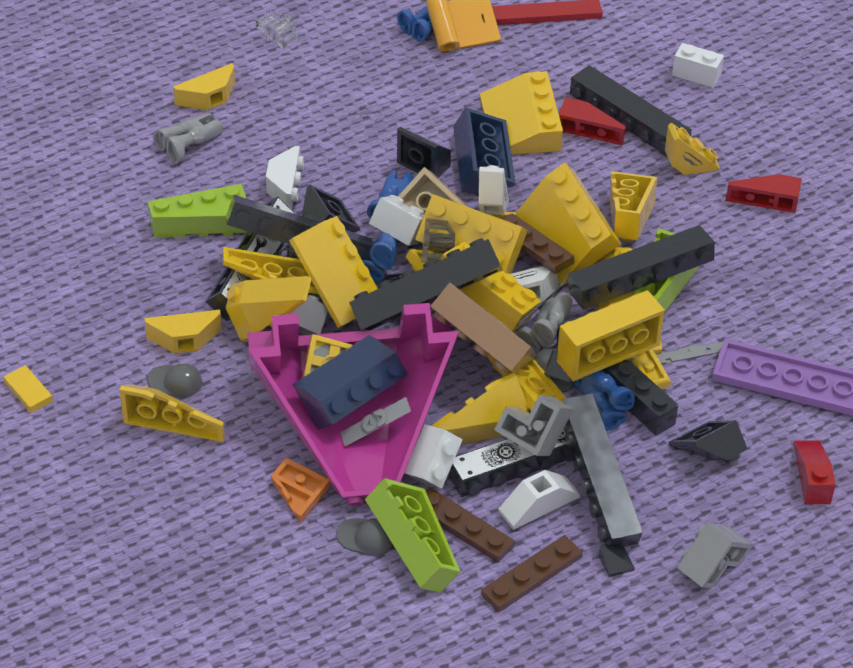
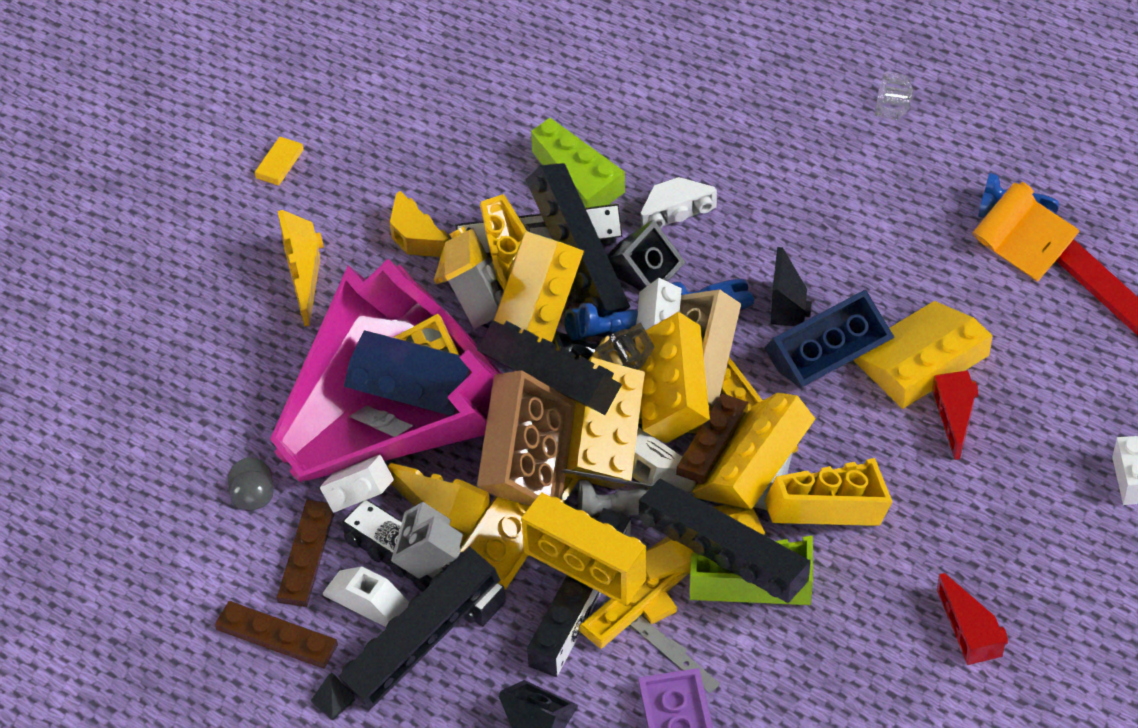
camera: 65 degrees right, 5 degrees up
(175, 380) = (357, 252): dark grey cap -> none
(187, 132) = (686, 105): light grey piece -> none
(206, 90) = (759, 88): yellow slope -> none
(299, 487) = (268, 404): orange wing -> none
(414, 532) = (258, 510): lime wedge -> none
(493, 190) = (756, 371): white slope -> none
(619, 397) = (532, 605): blue piece -> none
(624, 106) = (1003, 442): black brick -> none
(688, 154) = (968, 519): yellow slope -> none

